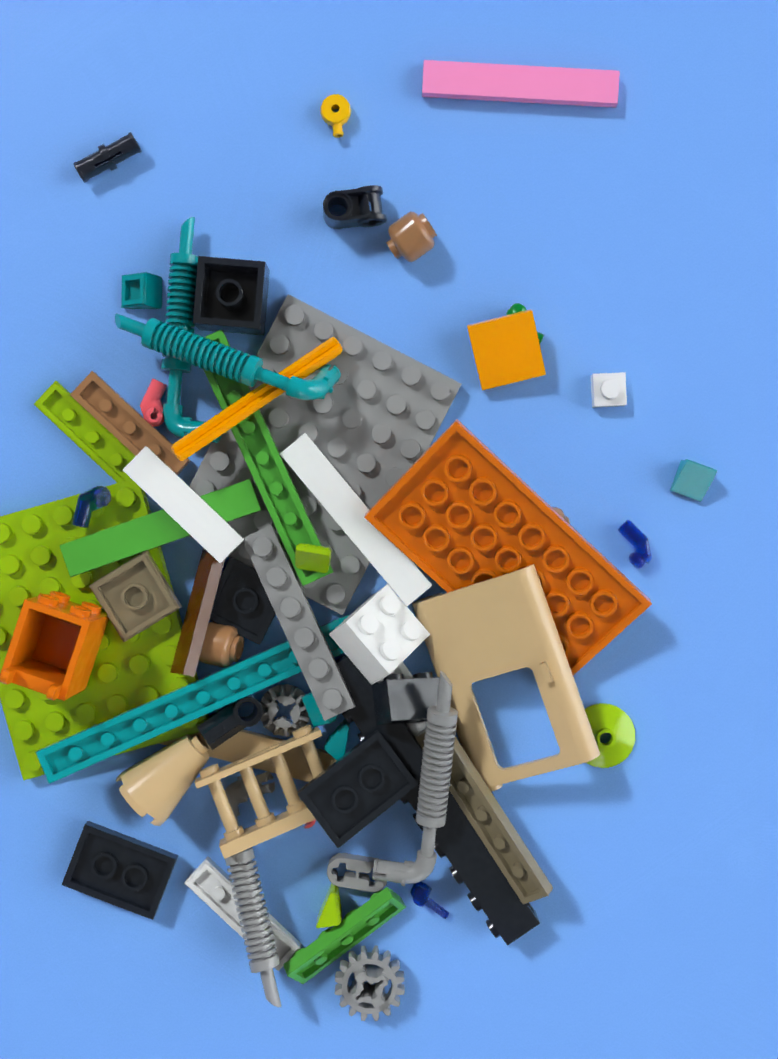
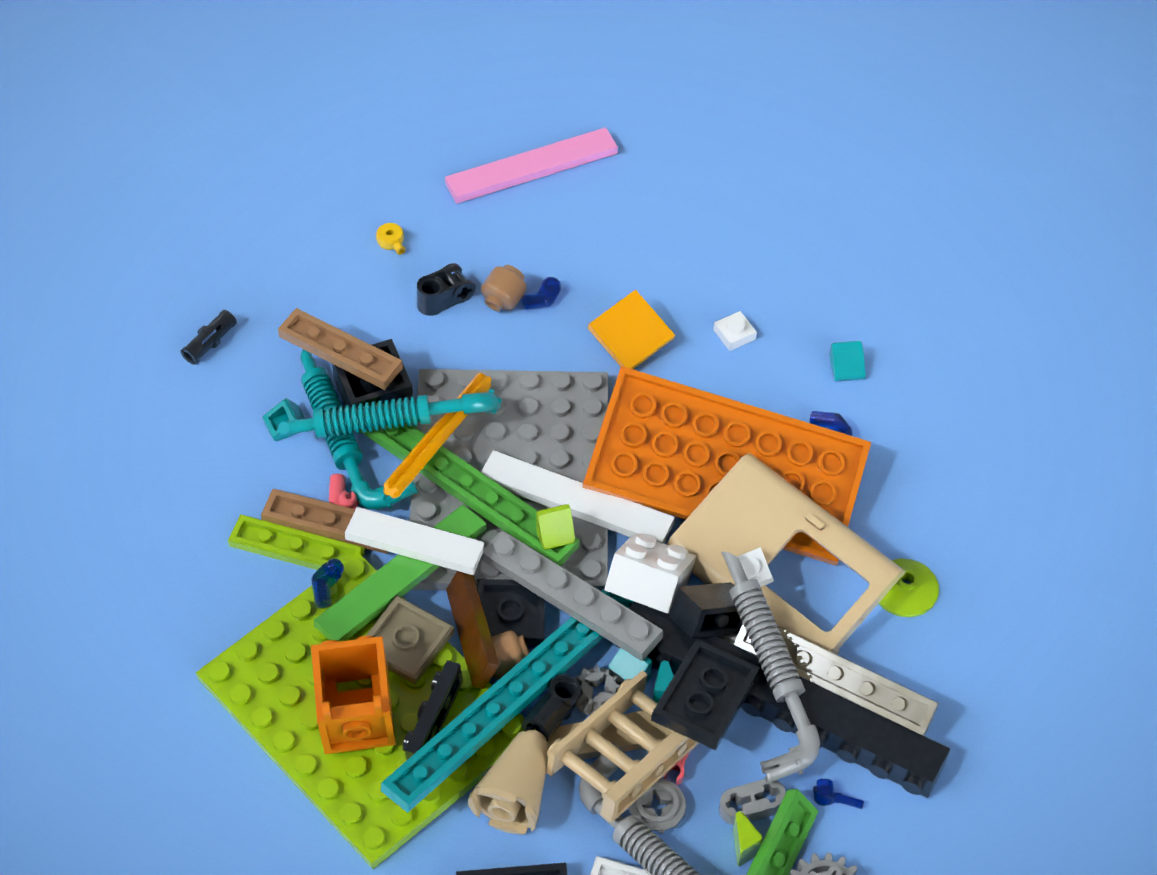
camera: 30 degrees left, 35 degrees down
(120, 687) = (435, 710): none -> black plate
(205, 256) = (340, 348): none -> medium nougat plate
(285, 852) = (666, 794): none -> light grey gear
(451, 260) = (545, 296): none -> clear blue arm
(467, 680) = (756, 566): none -> white plate

